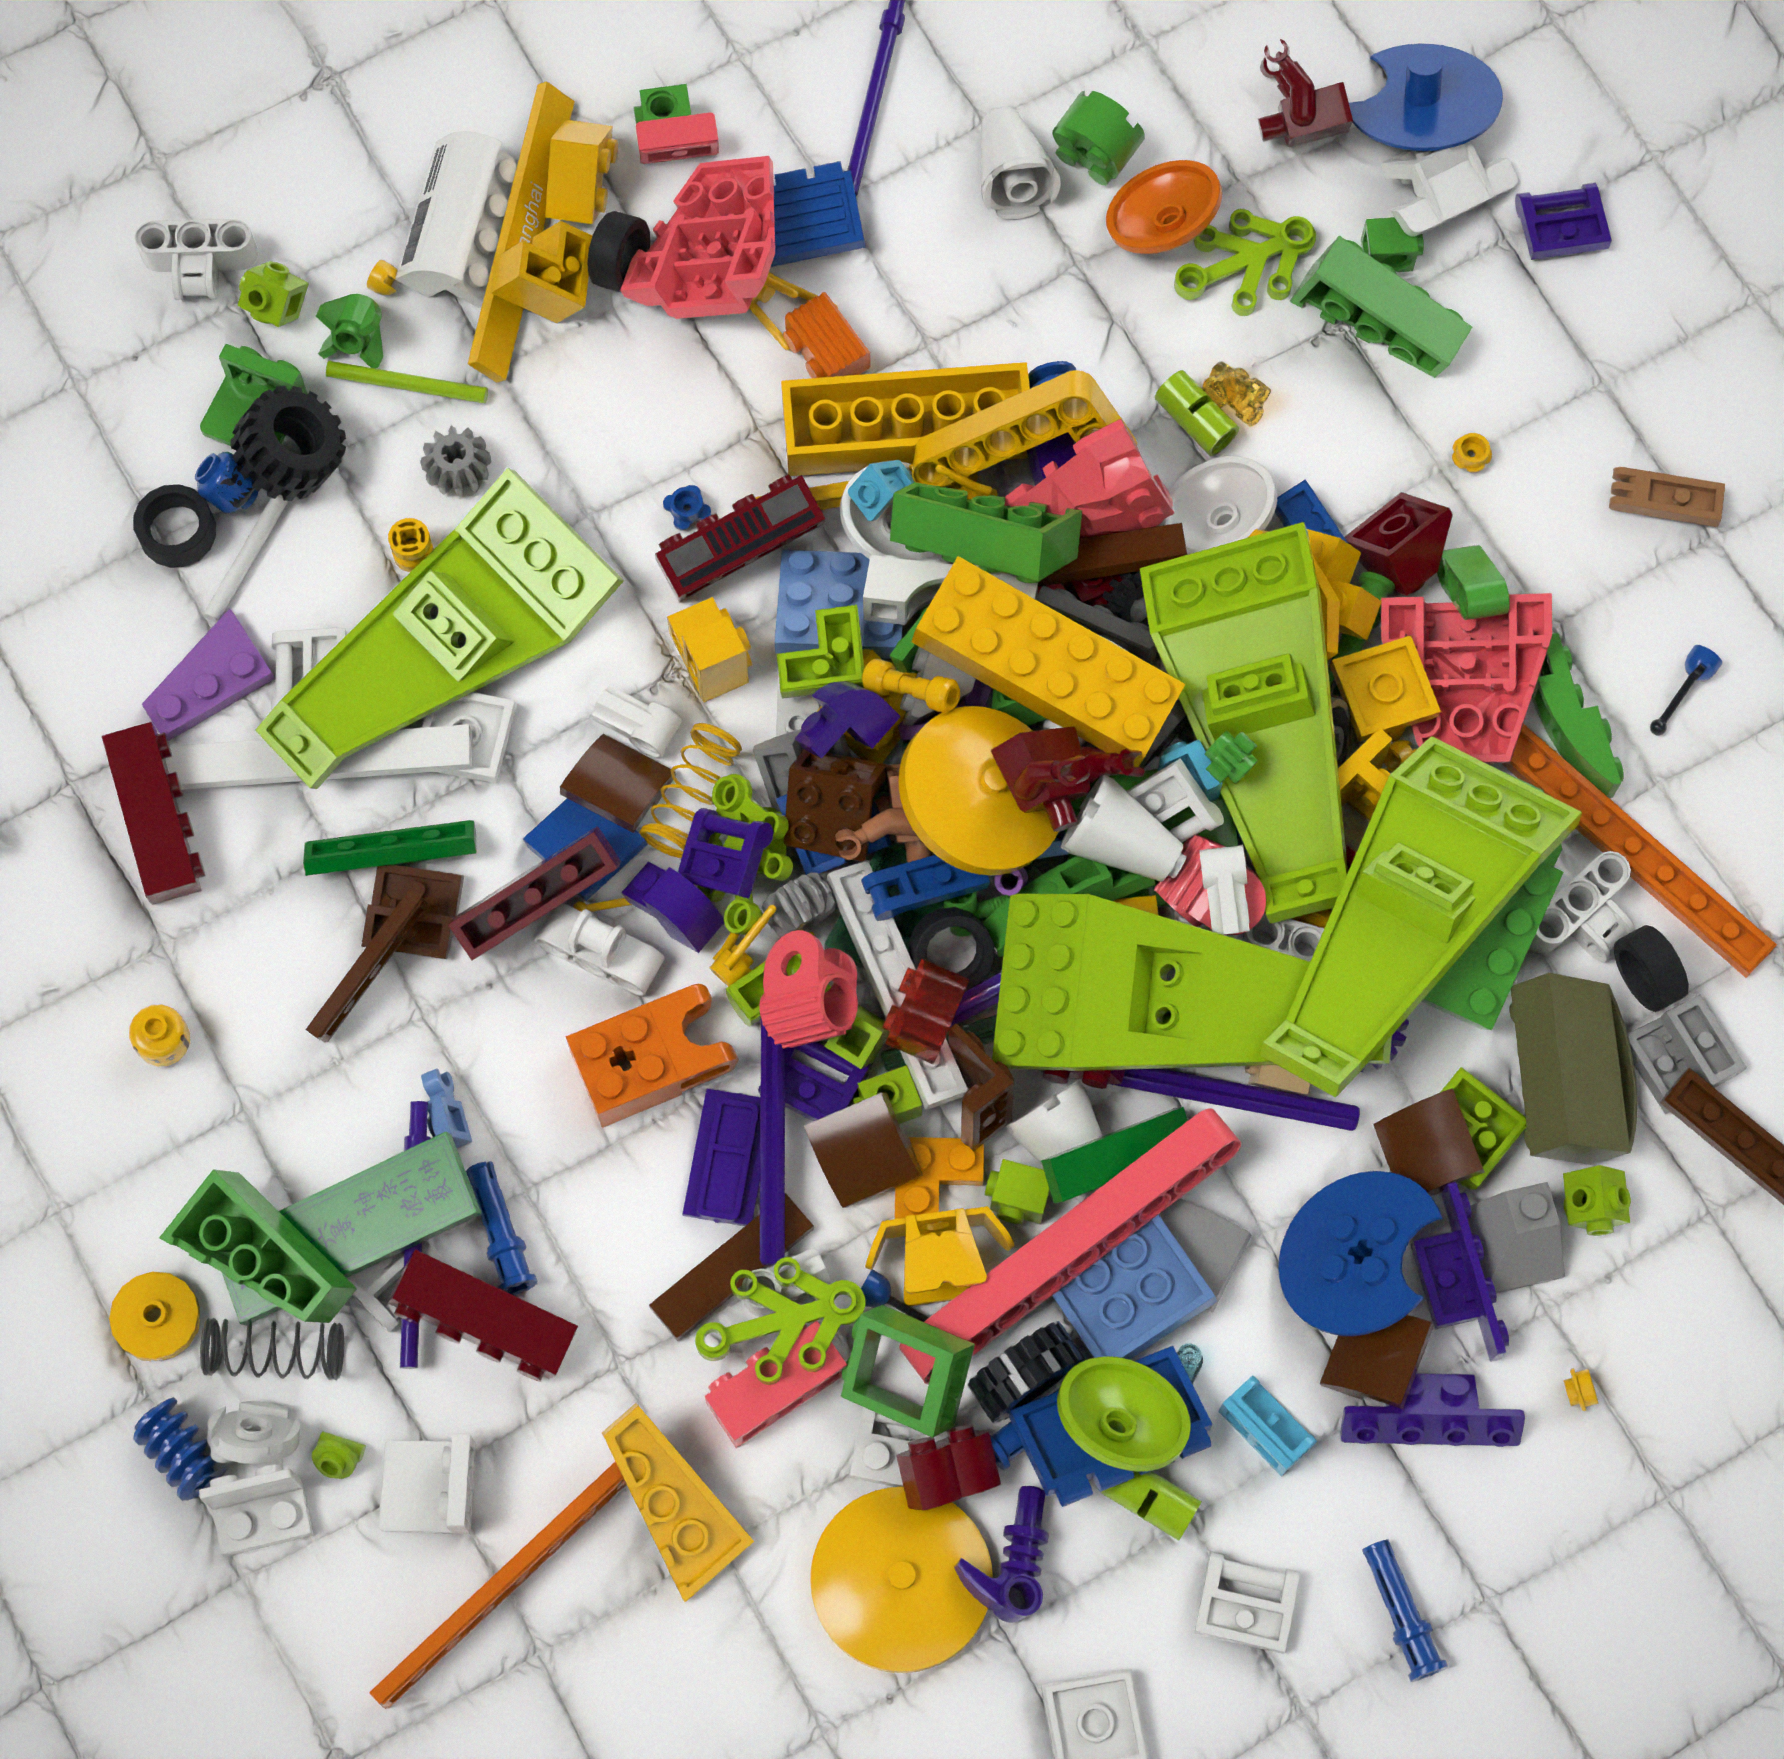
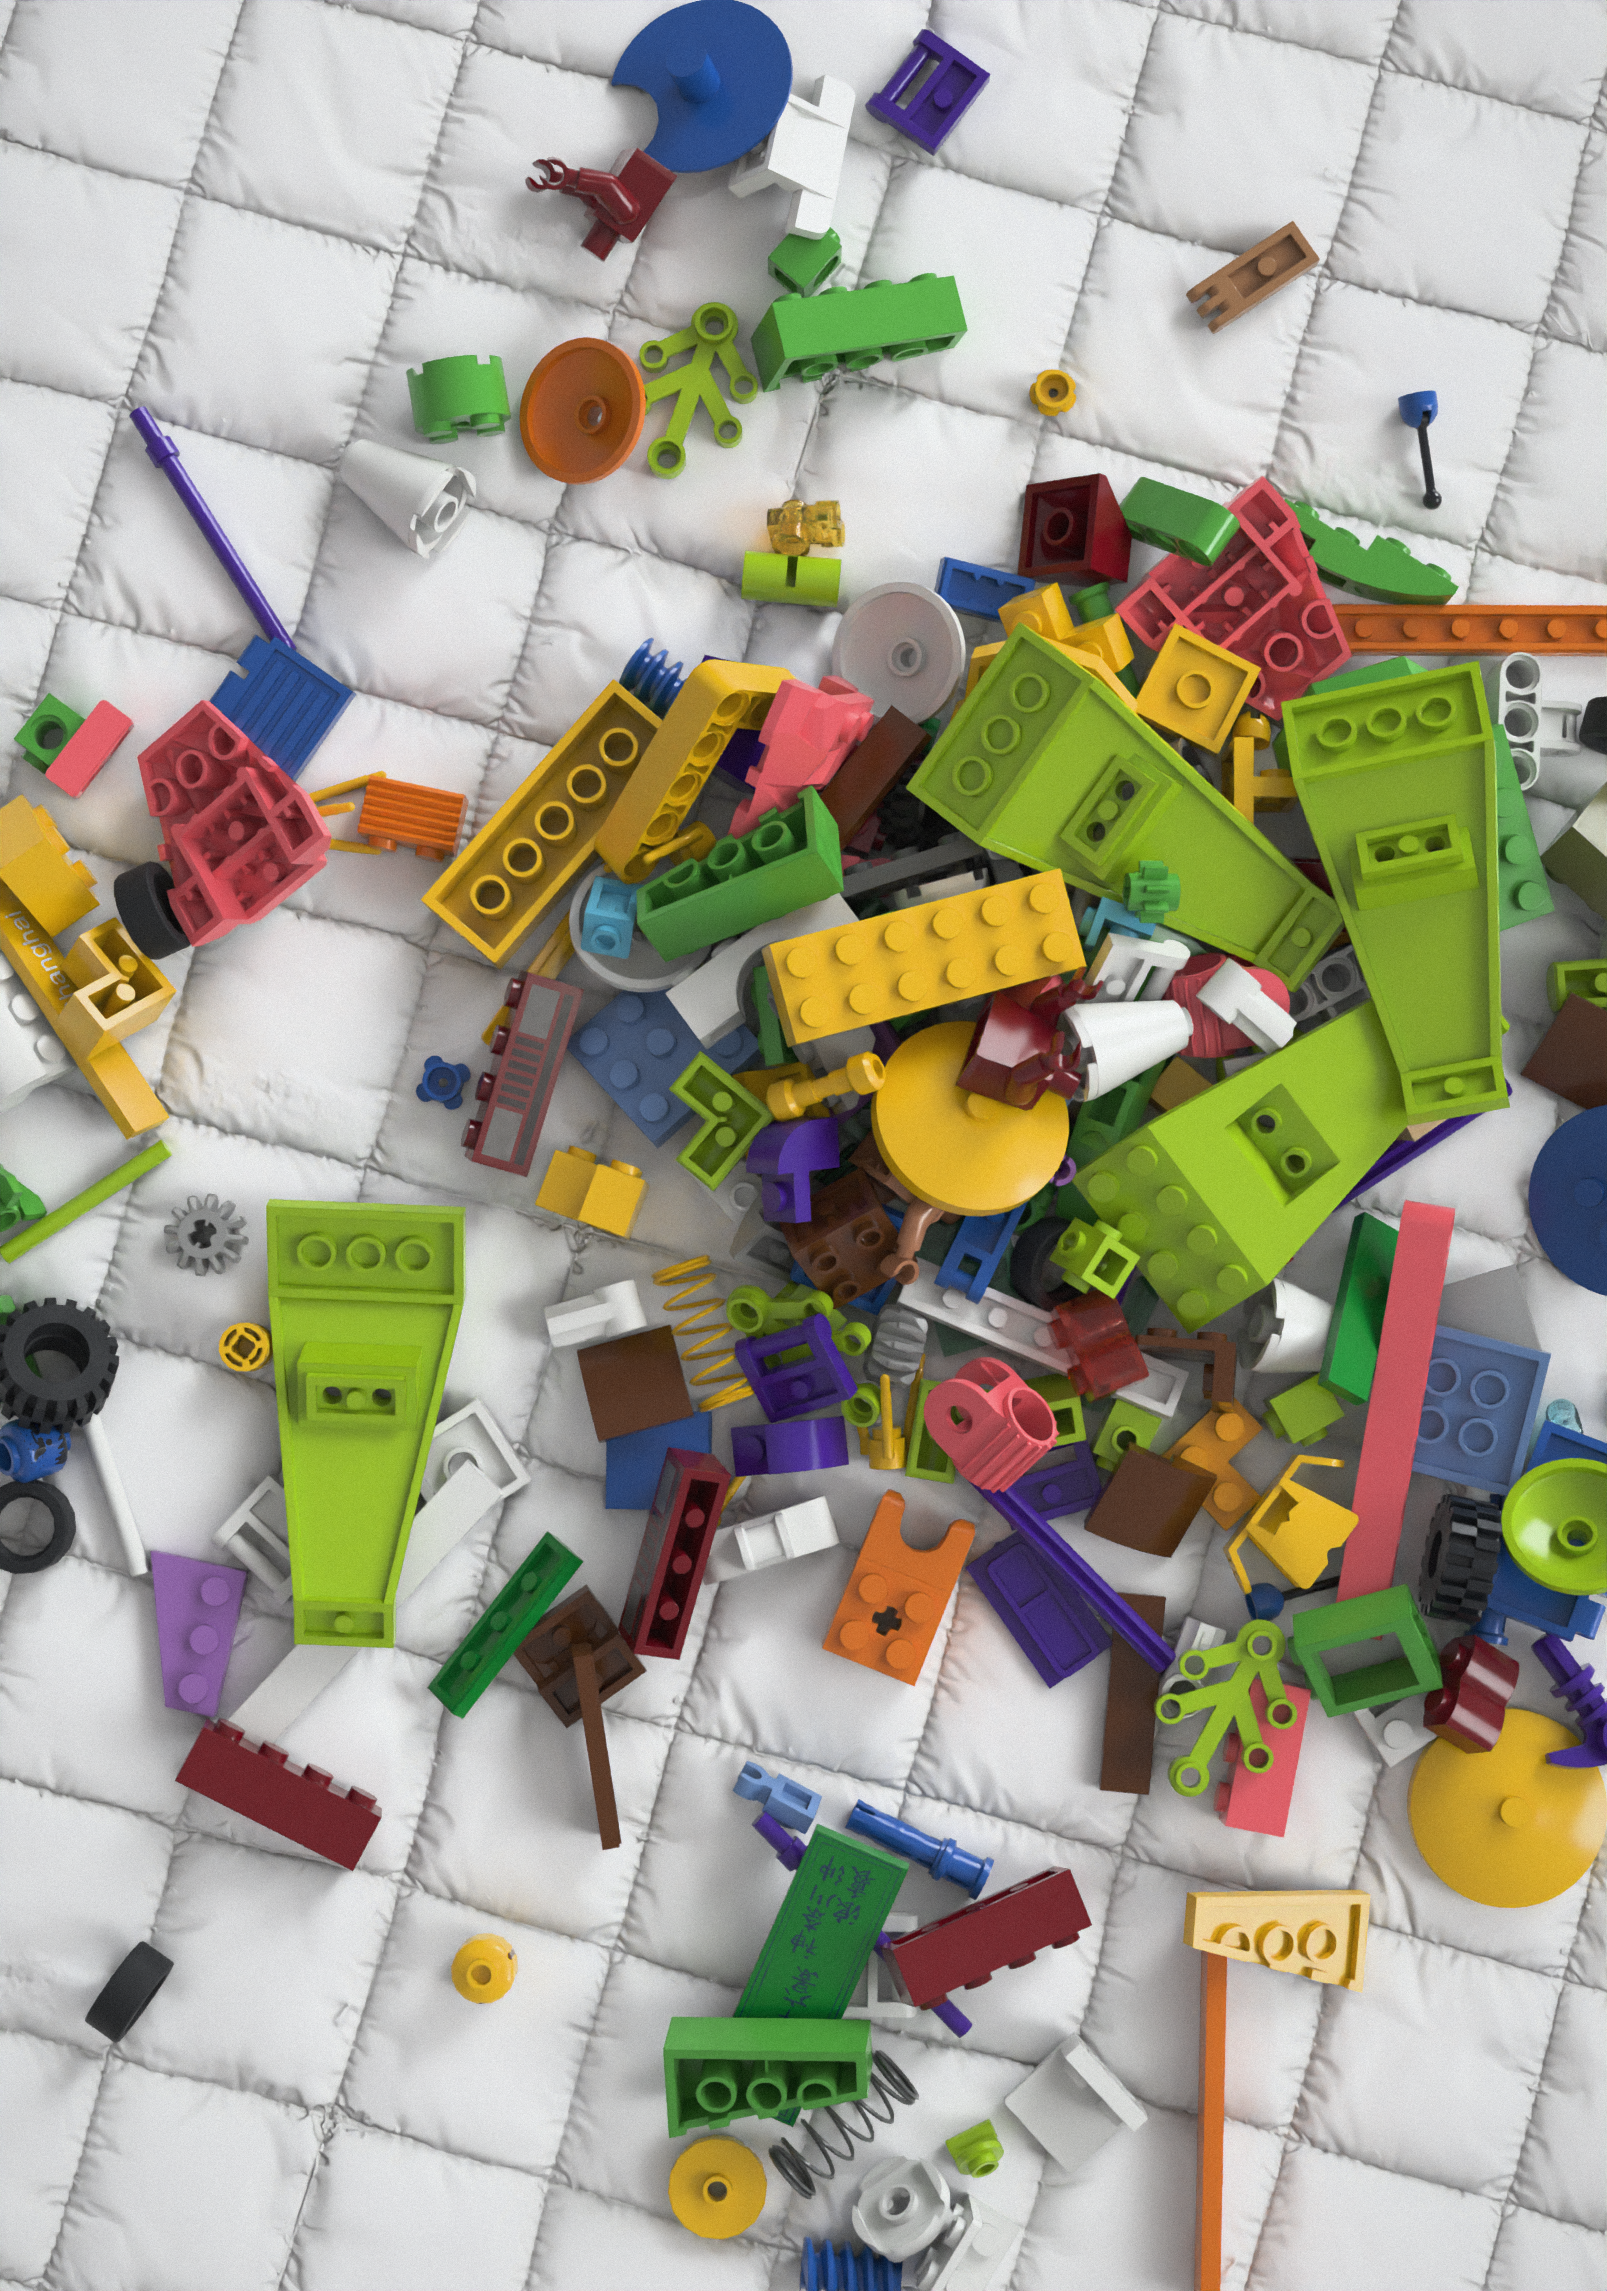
camera: 45 degrees left, 15 degrees up
(980, 962) = (1094, 1257): none -> lime brick

